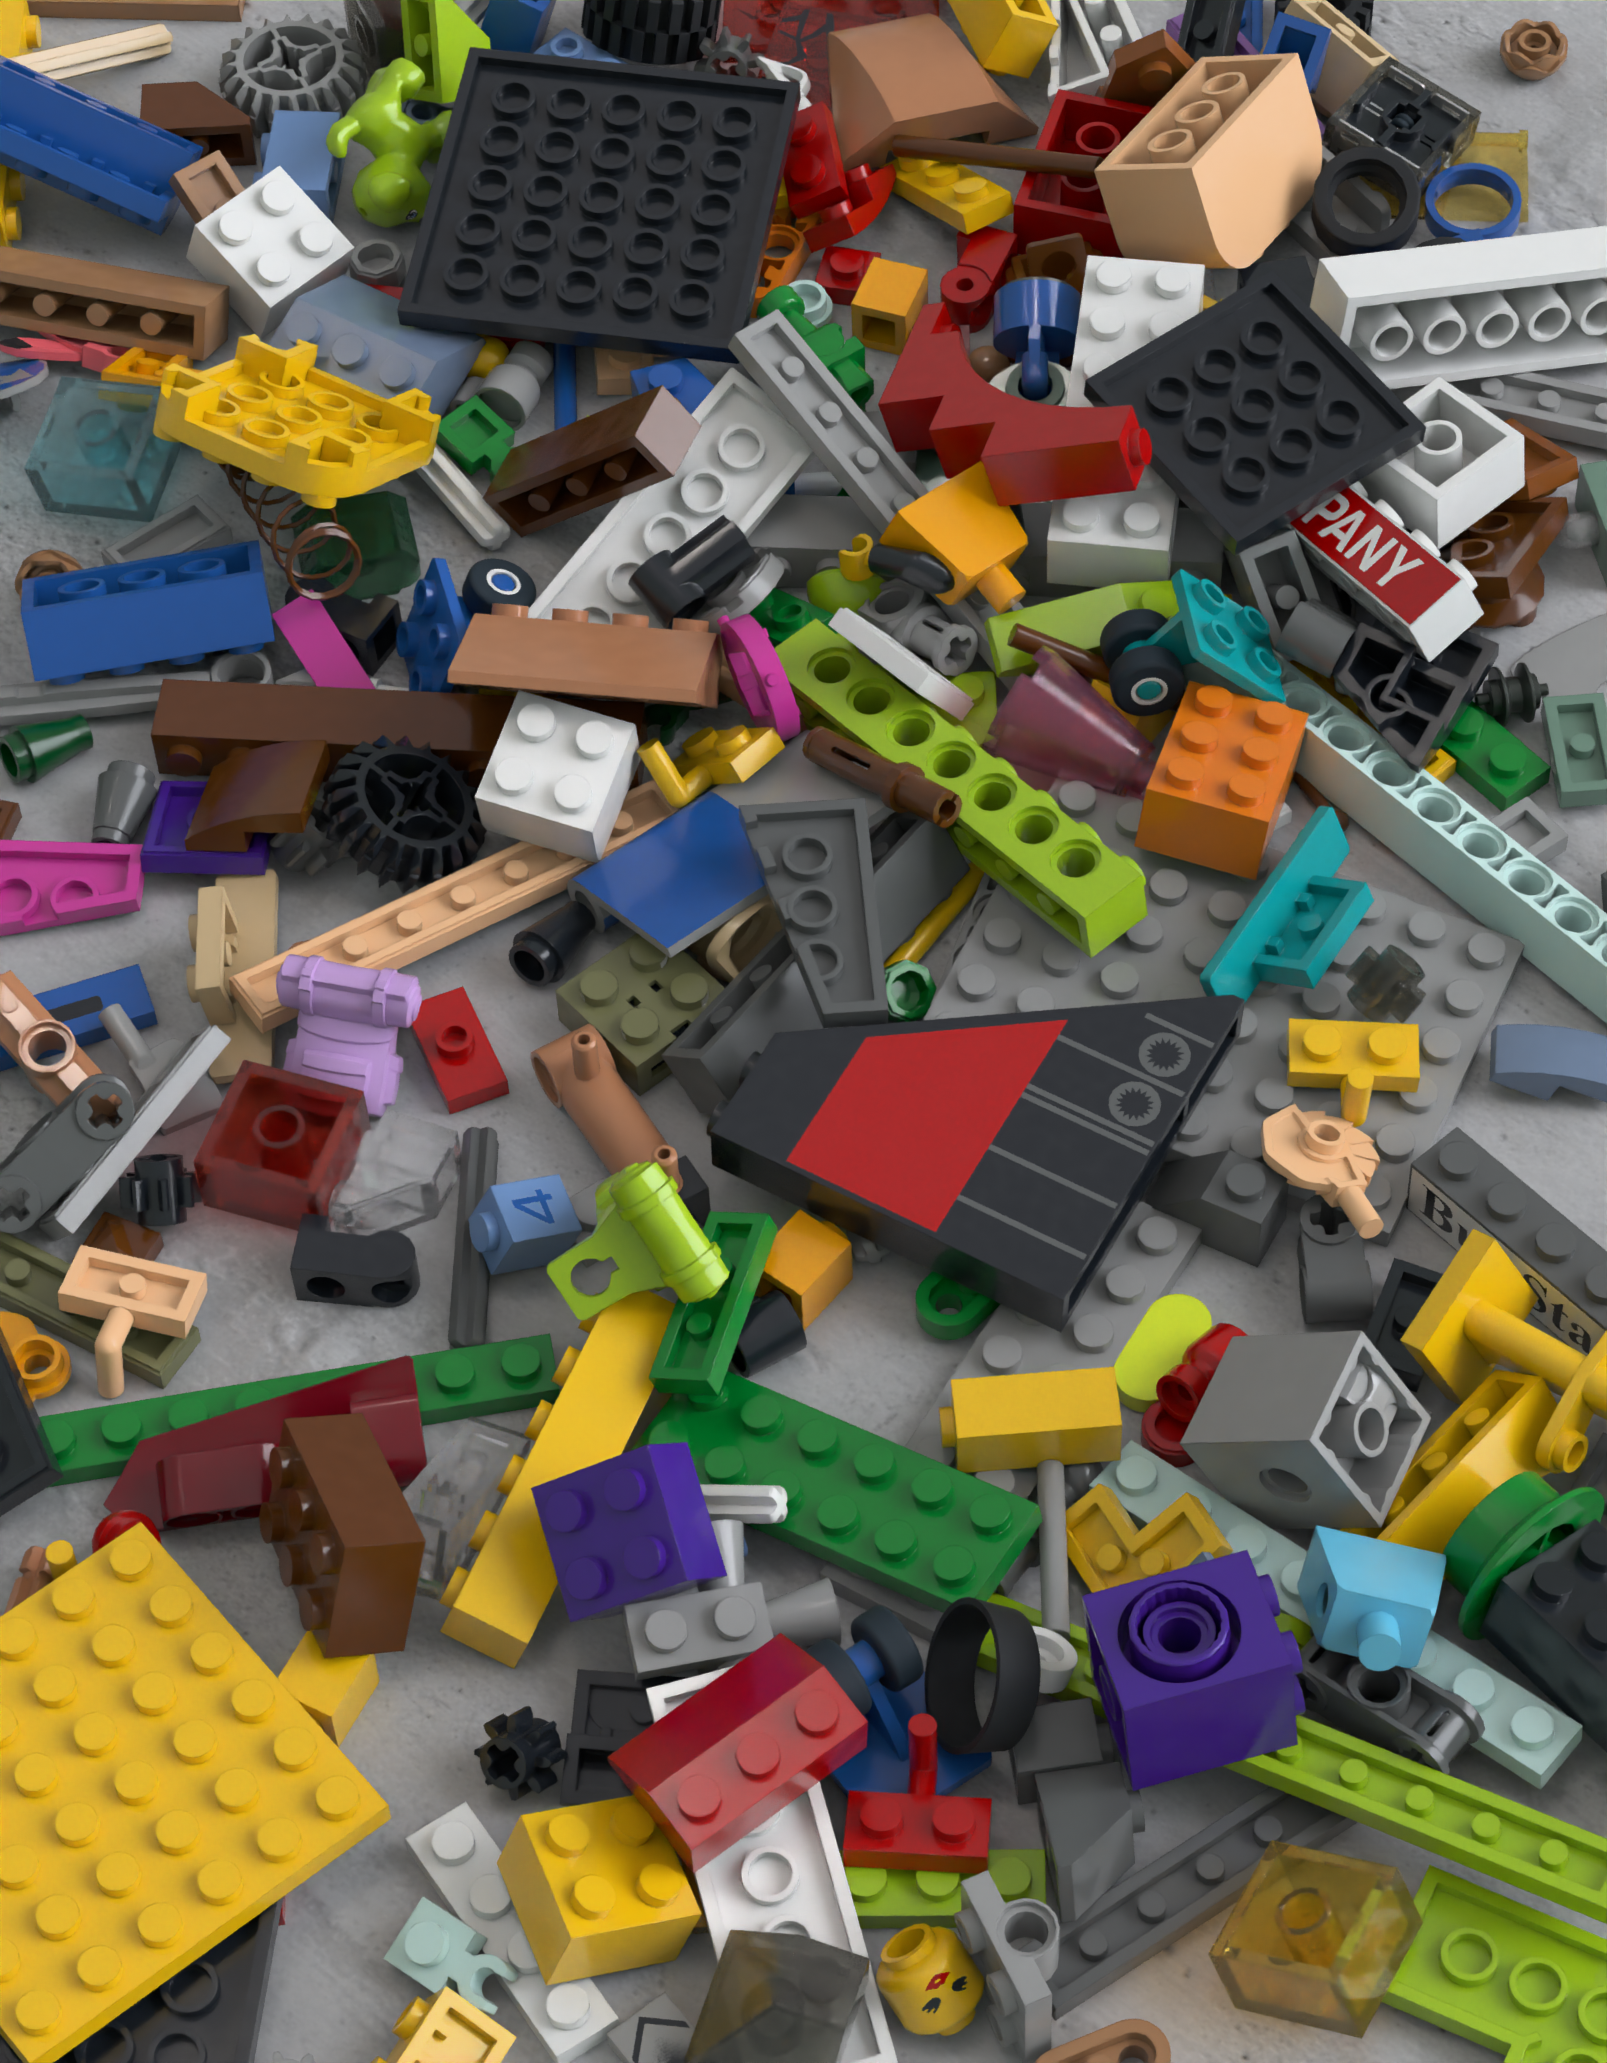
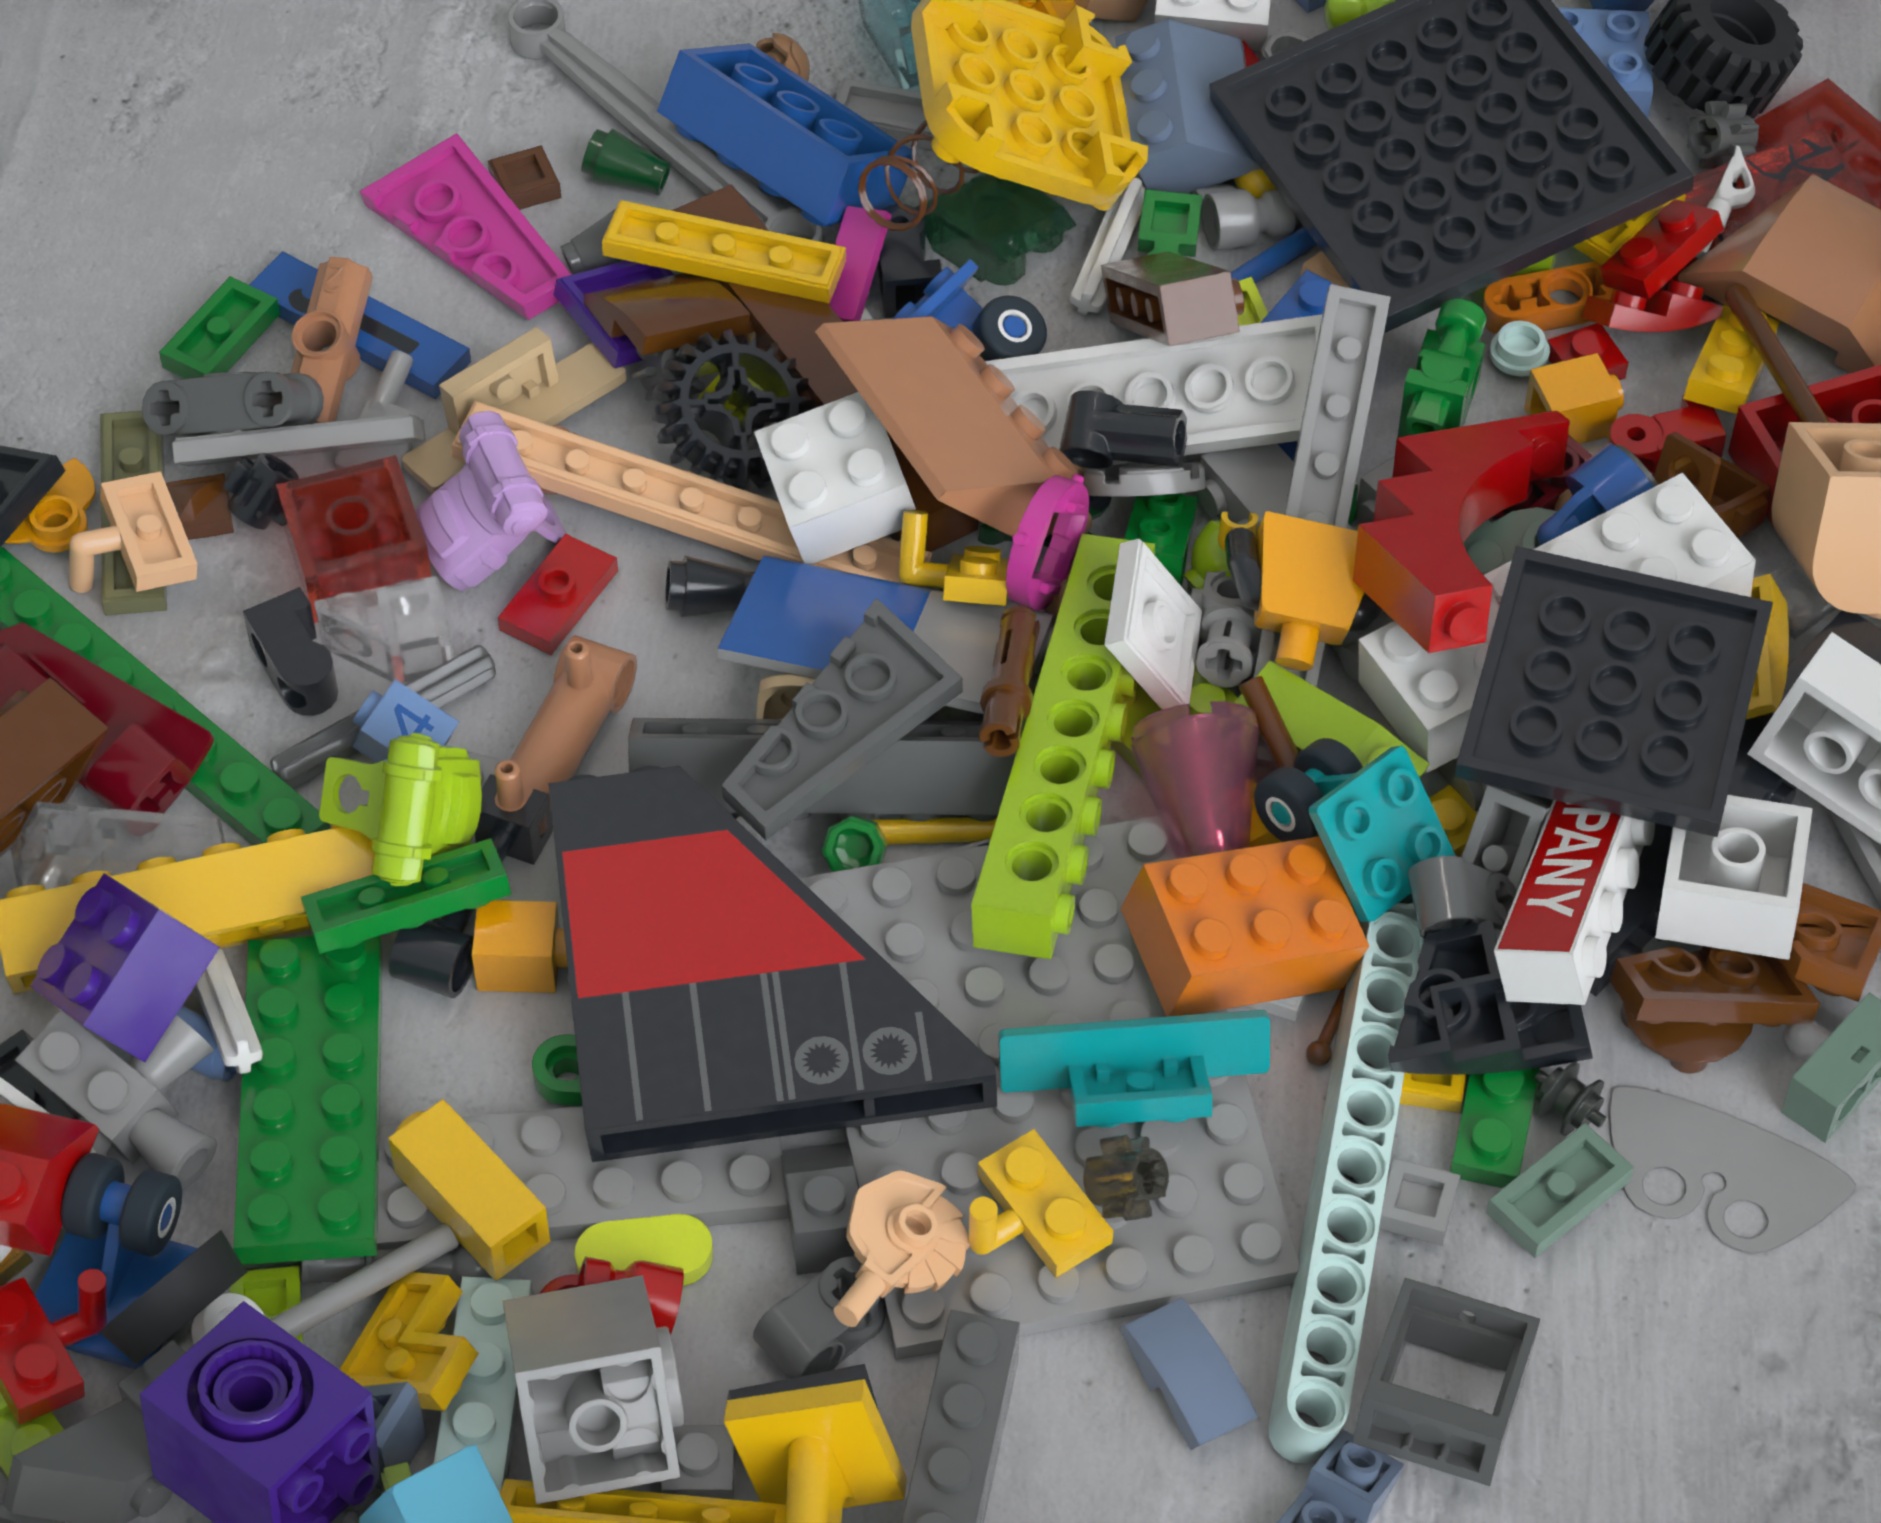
camera: 50 degrees right, 0 degrees up
(237, 721) = (724, 251): none -> yellow tile
(638, 1006) = (680, 676): olive piece -> none

